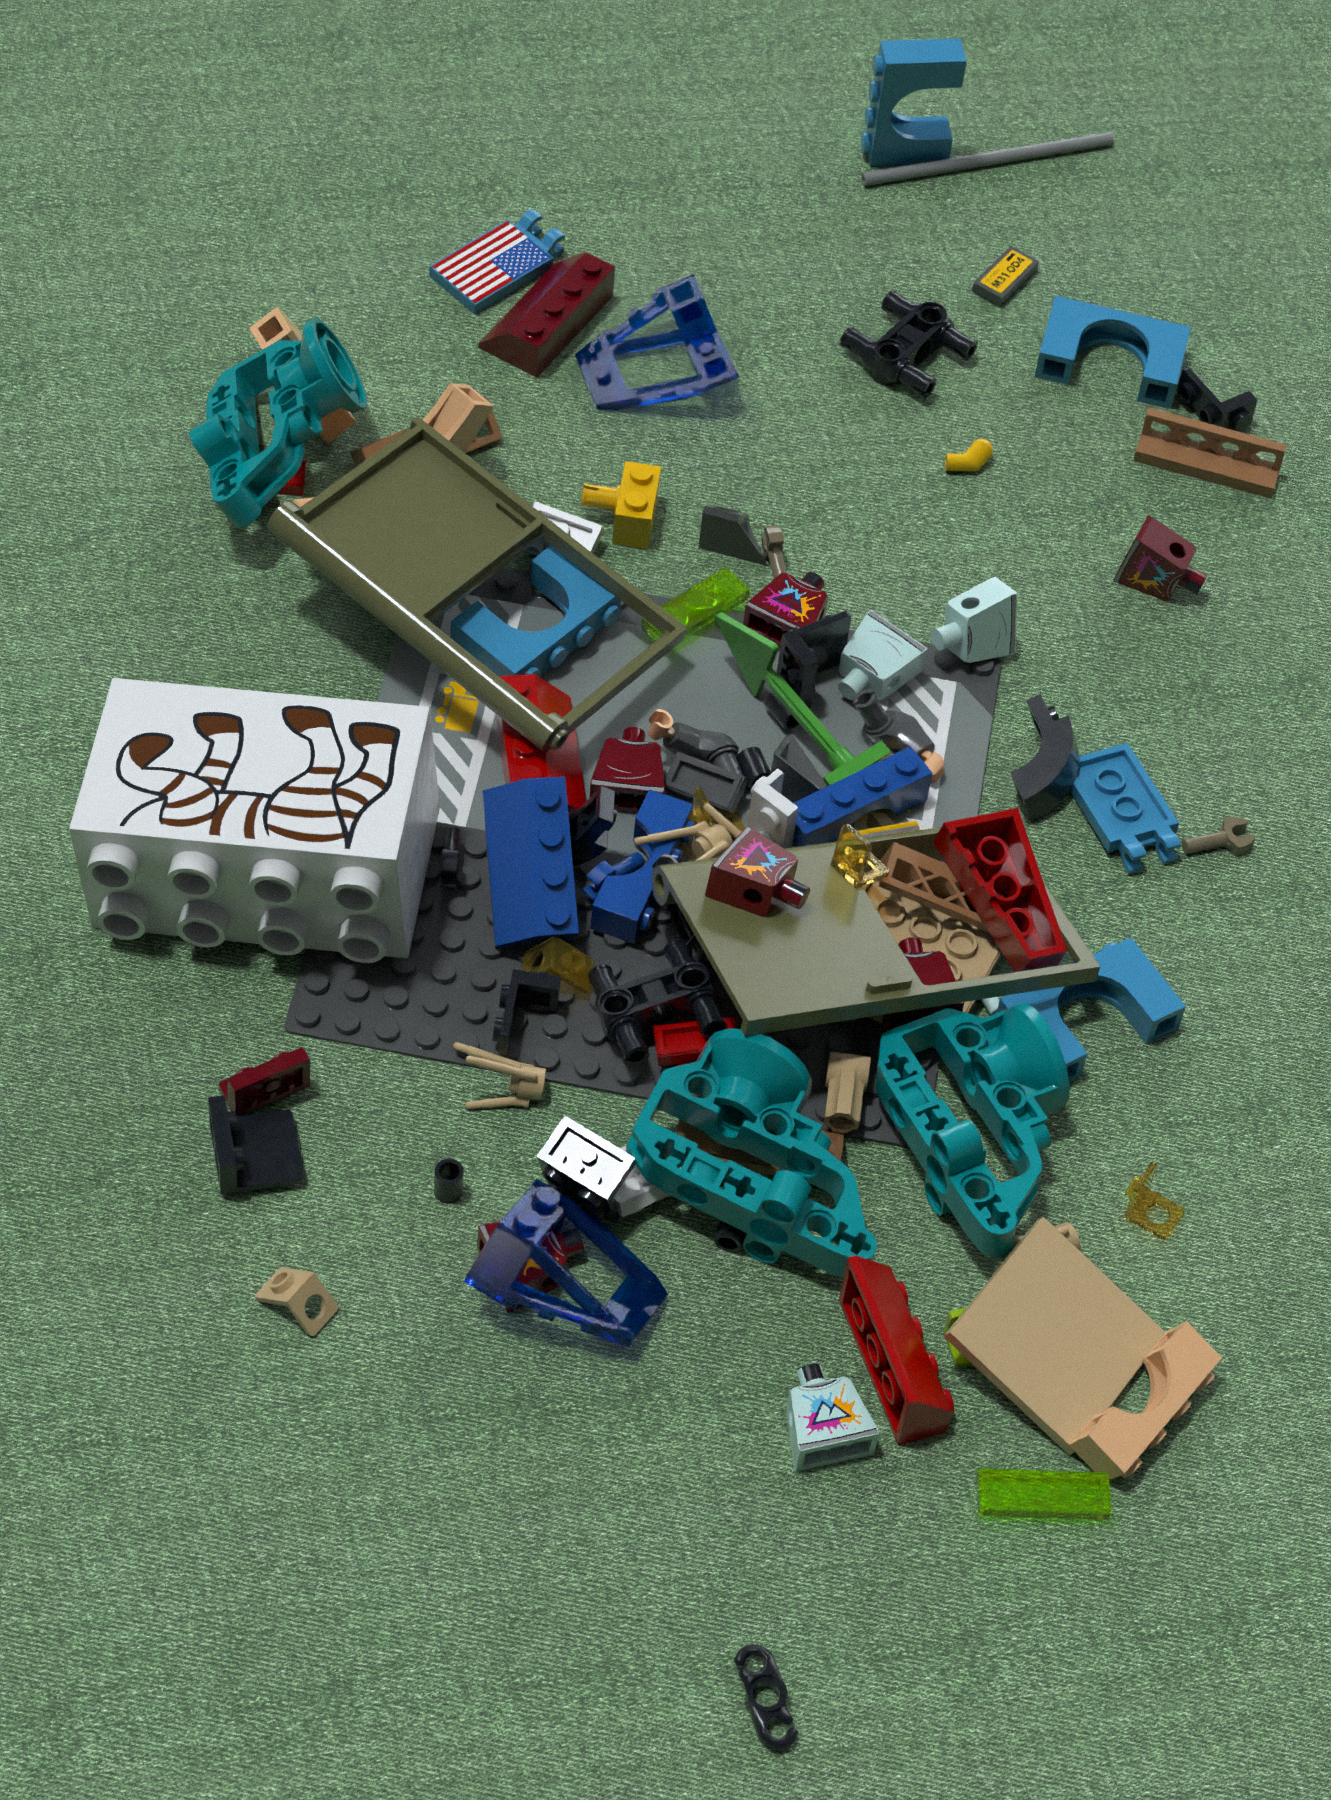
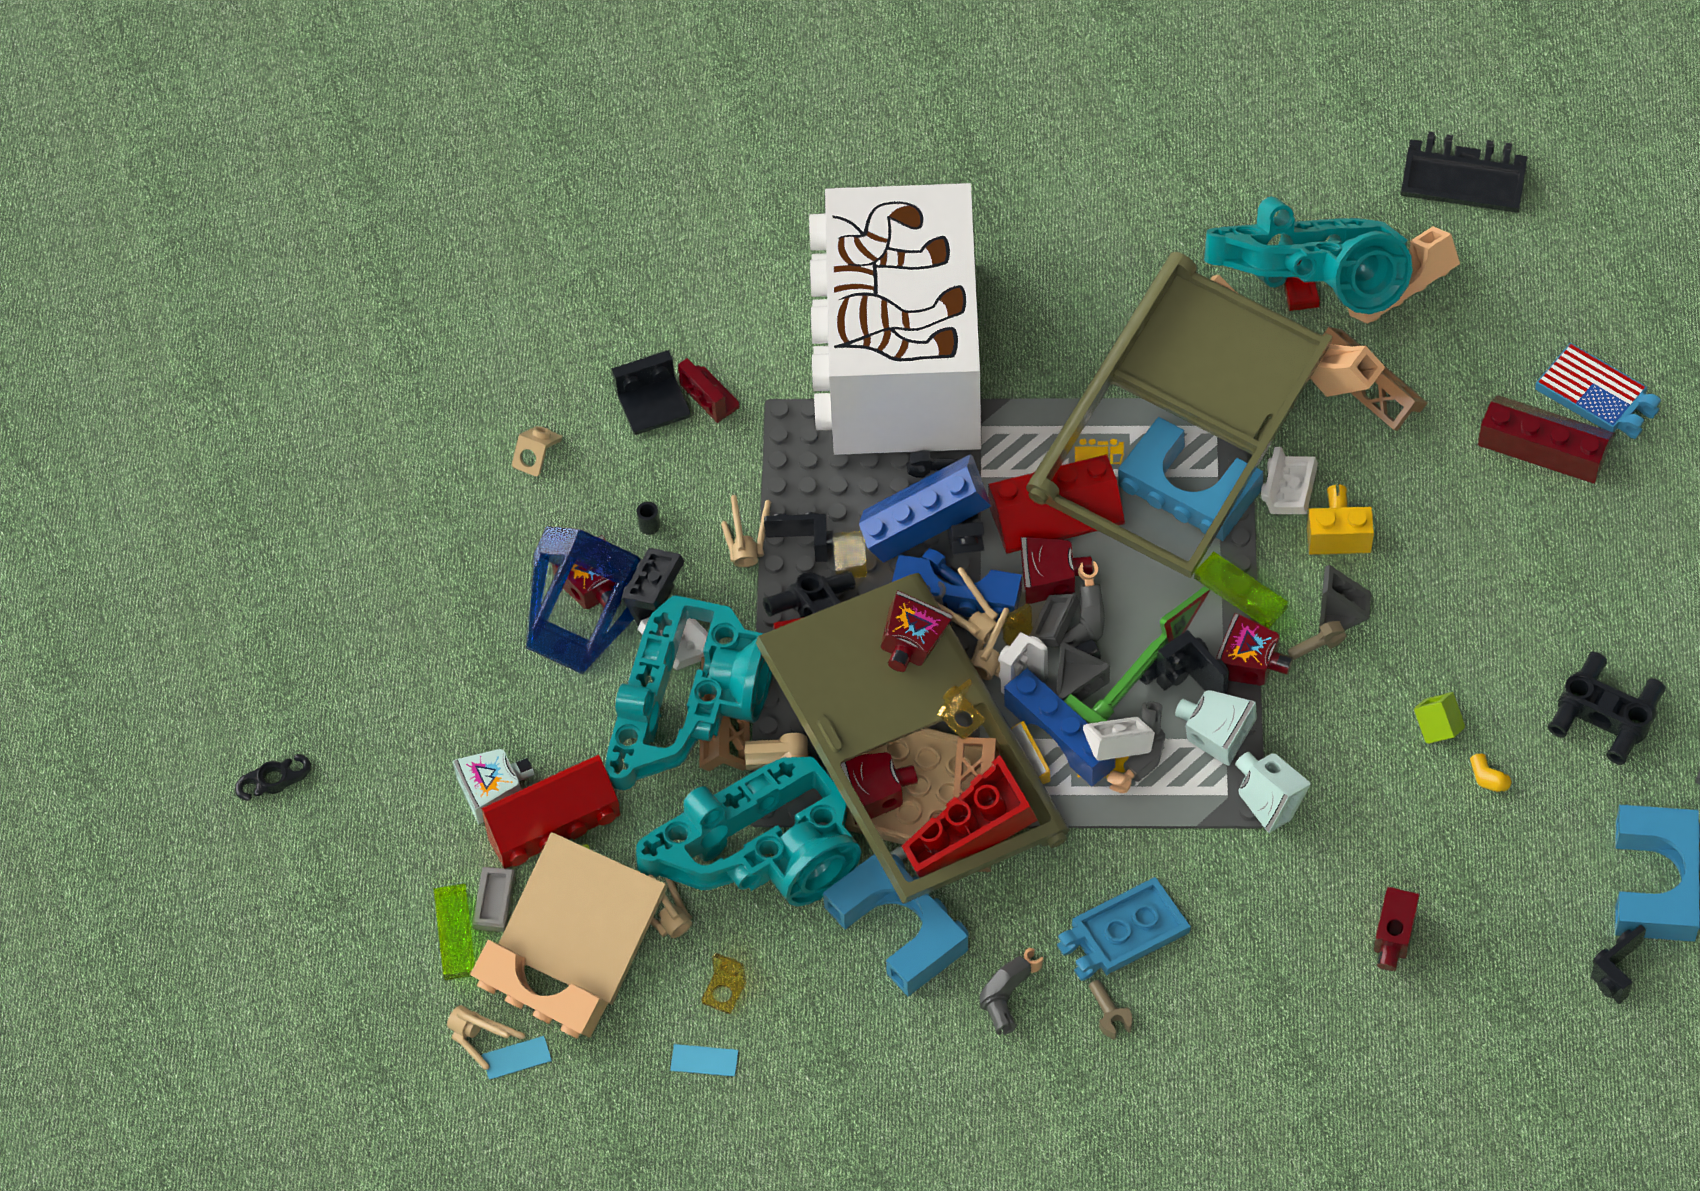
camera: 90 degrees right, 5 degrees up
(166, 300) = (1464, 177): none -> black hinge
(694, 329) = (1564, 543): clear blue windscreen -> none
(895, 476) = (1439, 717): none -> lime panel
(897, 736) = (1119, 738): none -> white slope
(993, 1445) = (493, 899): none -> light grey tile
(1054, 768) = (1143, 865): black arch -> none
(1180, 1497) = (469, 1023): none -> tan plant
(1189, 922) = (1000, 987): none -> dark grey arm
(1208, 458) = (1552, 966): medium nougat fence -> none
(1223, 1454) = (517, 1057): none -> medium azure sticker
(1245, 1248) = (704, 1060): none -> medium azure sticker

